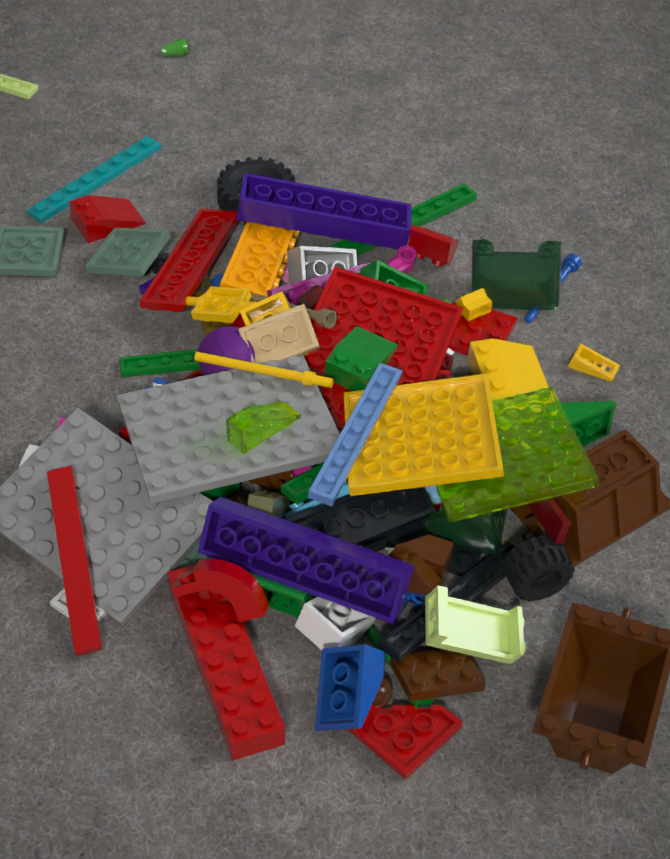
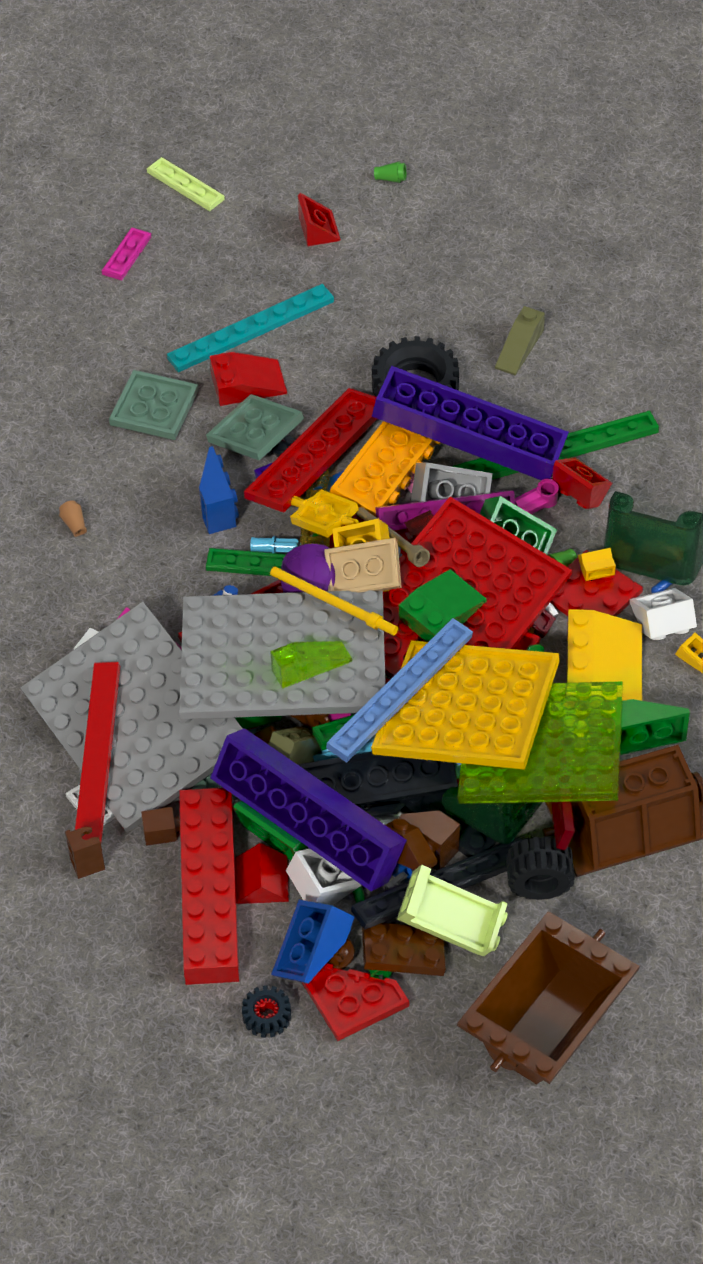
camera: 20 degrees right, 5 degrees up
(89, 655) = (84, 854): none -> reddish brown hinge
(116, 311) = (216, 496): none -> blue slope
(124, 92) = (316, 222): none -> red slope
(156, 611) = (160, 826): none -> reddish brown brick
(179, 343) = (273, 544): none -> medium azure axle
(228, 580) = (229, 815): red arch -> none
(274, 637) = (261, 876): none -> red slope
(313, 760) = (259, 1003): none -> black bush
(334, 149) = (521, 340): none -> olive slope
(547, 333) = (664, 613): none -> white slope

